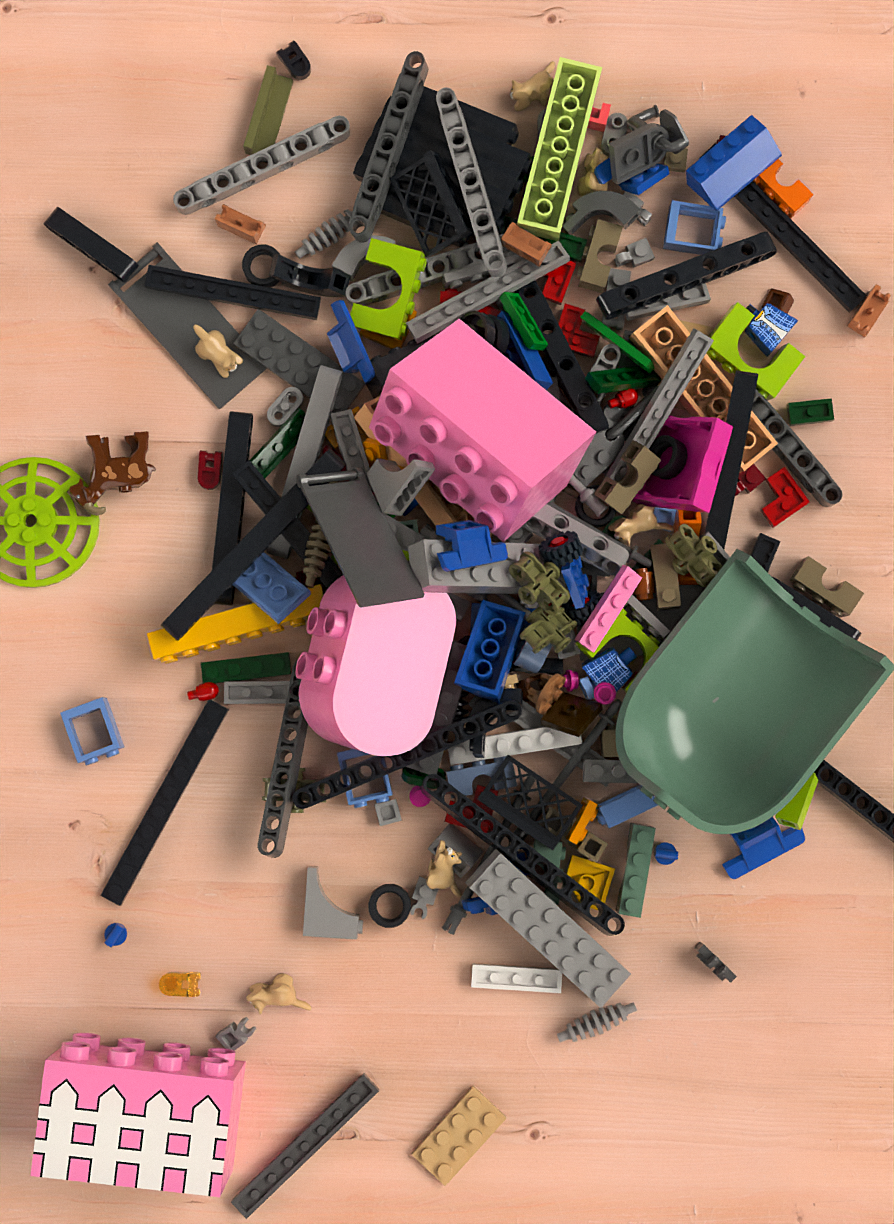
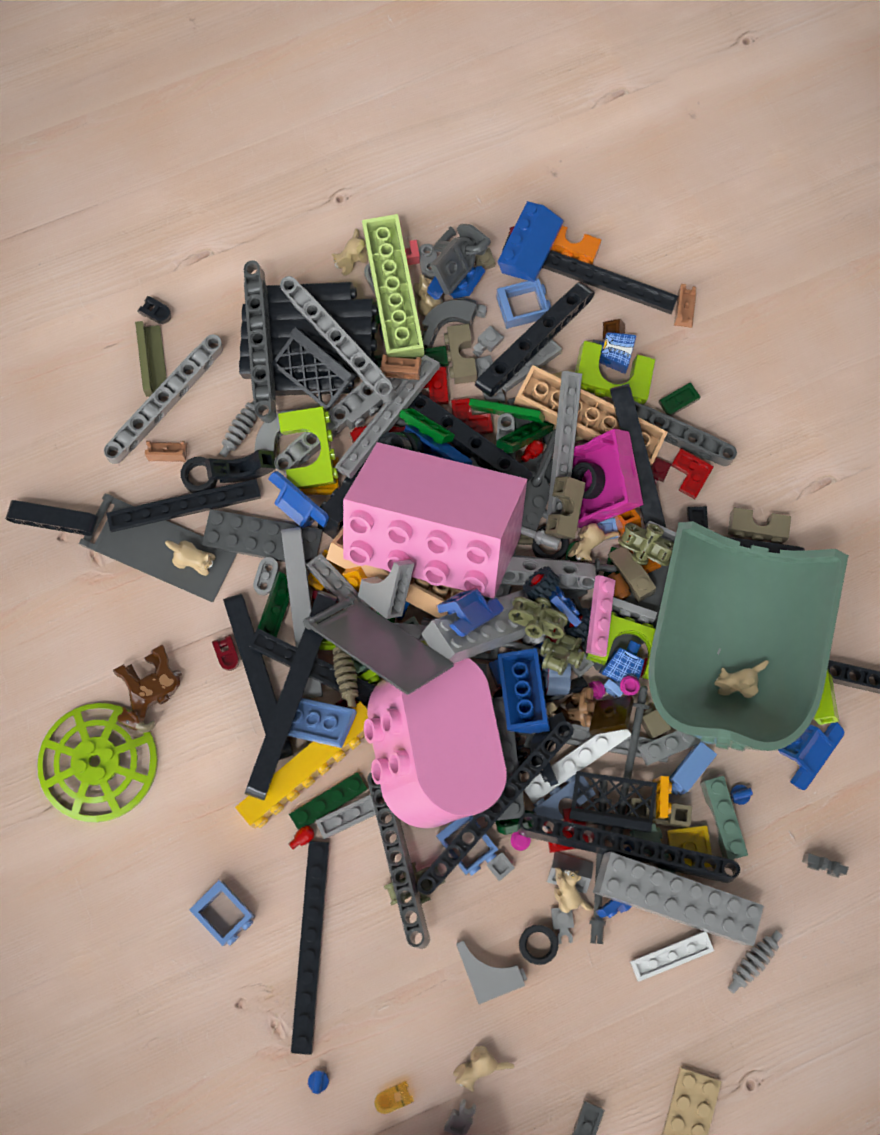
camera: 25 degrees left, 10 degrees down
(724, 743) = (743, 681): none -> tan animal

